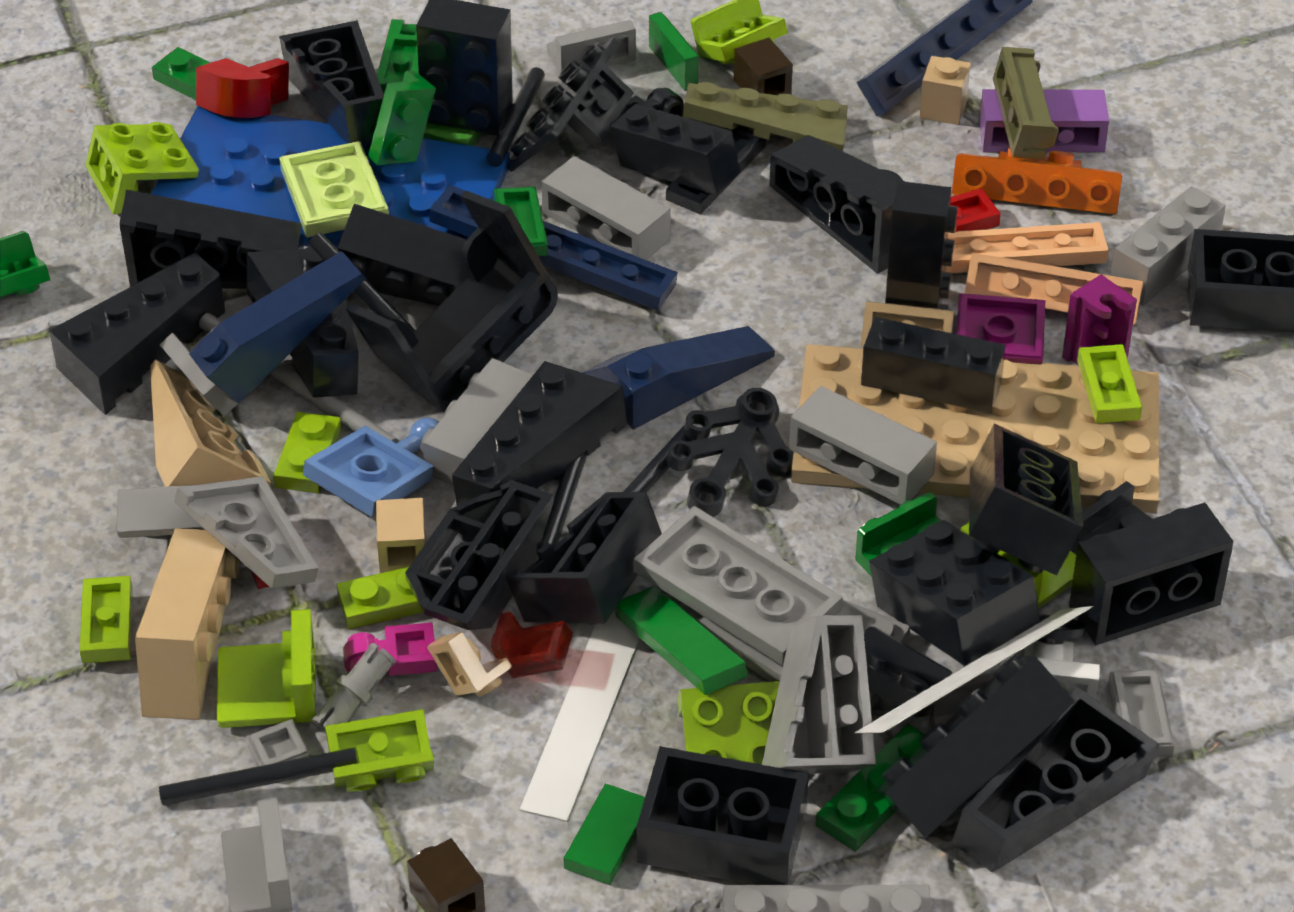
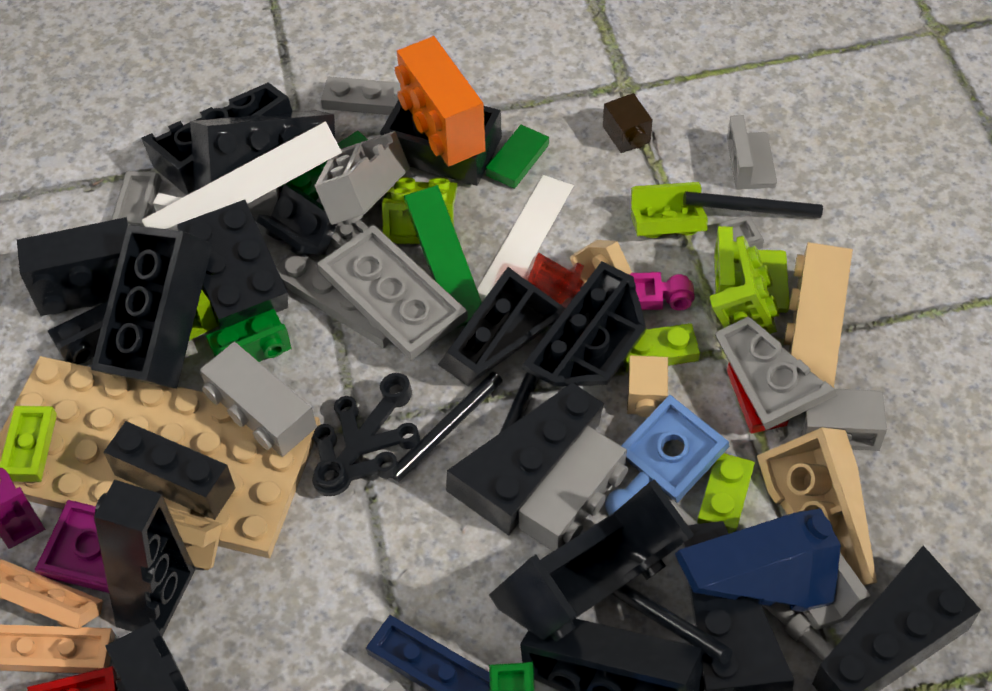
camera: 170 degrees left, 10 degrees up
(106, 619) = (879, 341): lime plate -> none
(264, 615) = (751, 298): none -> lime bracket
(355, 687) = (685, 254): light grey pin -> none
(678, 371) = (399, 538): dark blue wedge -> none
(720, 760) = (440, 101): none -> orange brick

